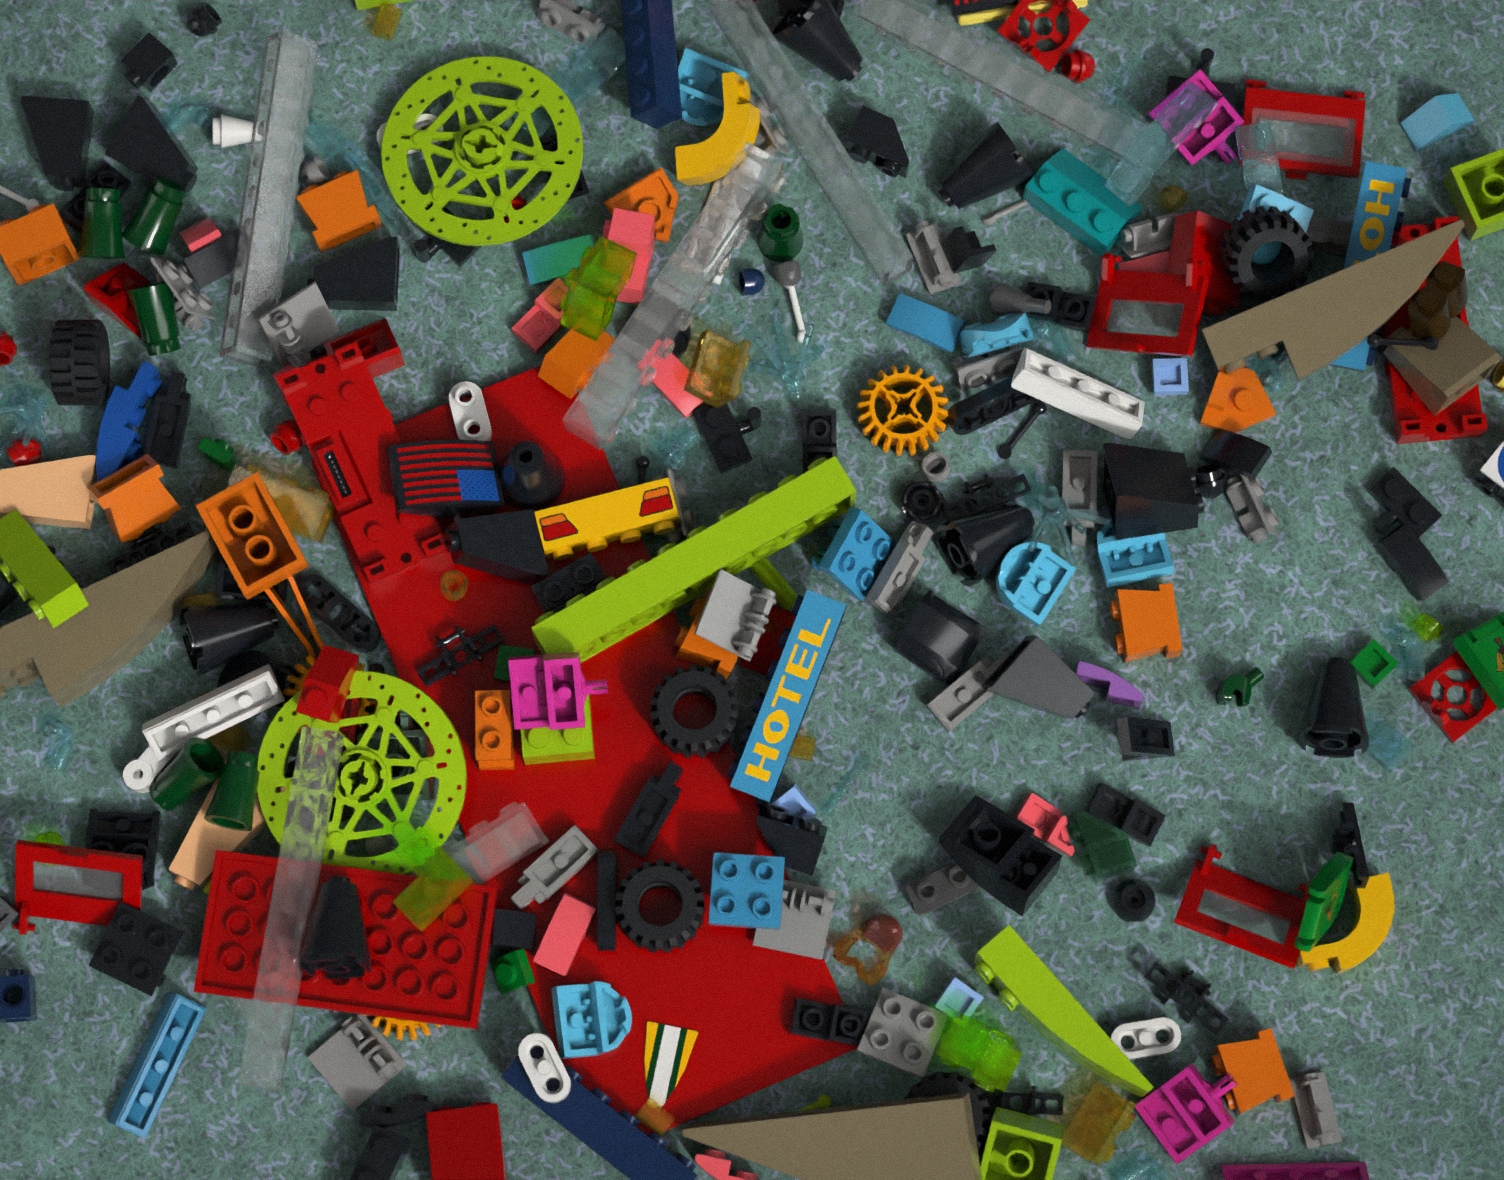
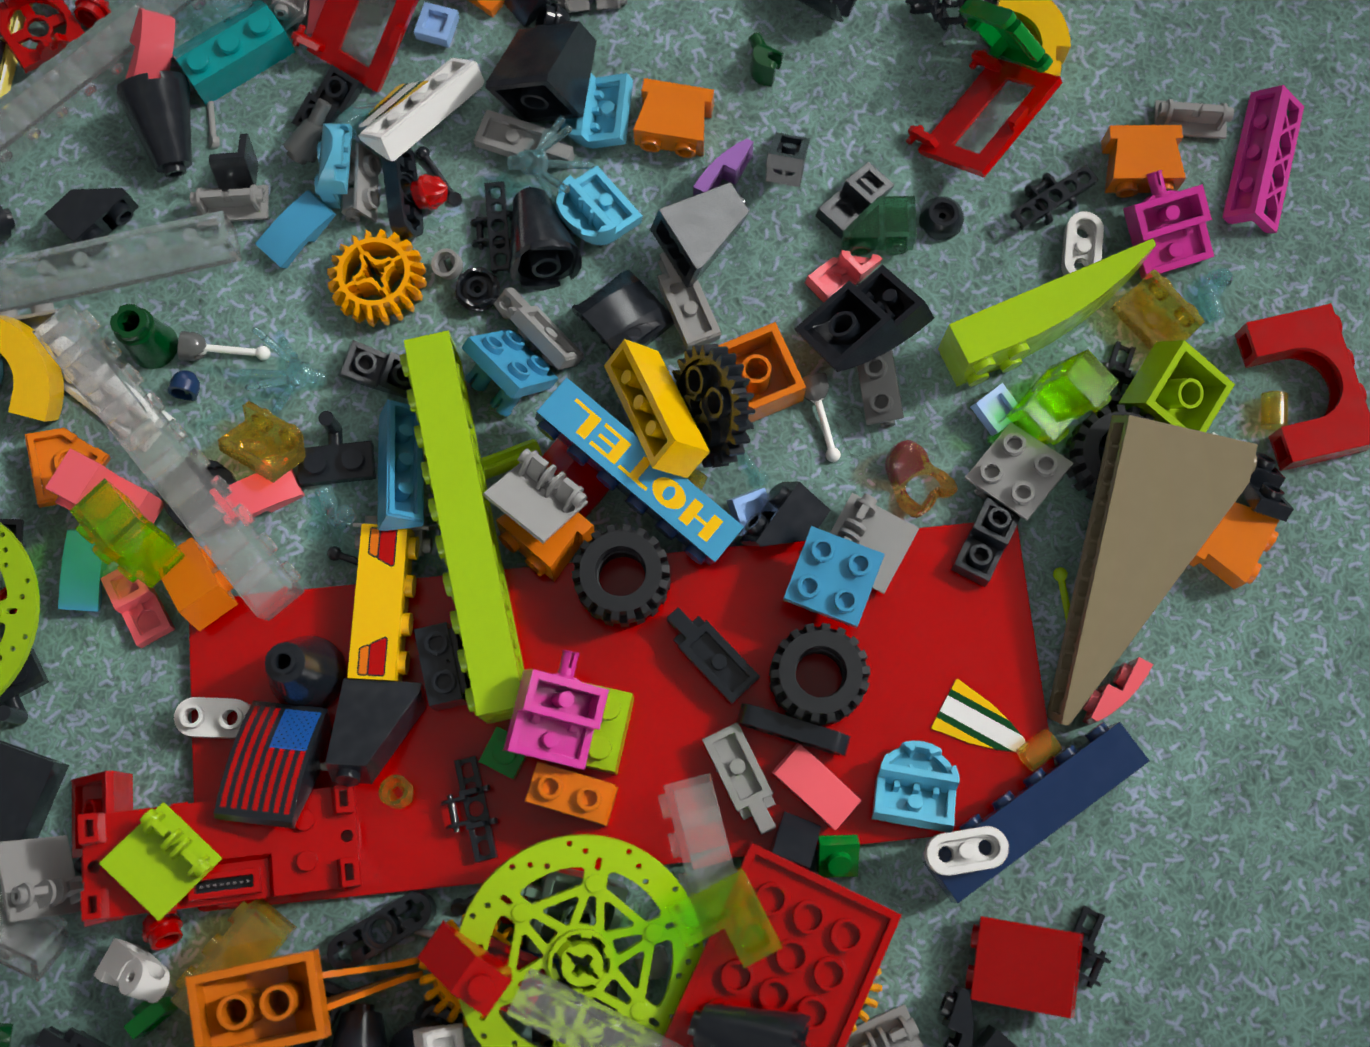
camera: 70 degrees left, 0 degrees up
(248, 428) = (133, 971): none -> white leg
(340, 418) = (160, 860): none -> lime hinge
(716, 495) = (399, 469): none -> dark azure slope
(850, 691) = (656, 409): none -> yellow brick
(869, 739) = (716, 401): none -> black gear
(916, 772) = (770, 370): none -> orange brick
(924, 832) = (816, 391): none -> hinge
(1000, 427) = (429, 192): none -> red plate
(1054, 136) = (153, 44): none -> coral slope
(1077, 365) = (393, 99): none -> sticker

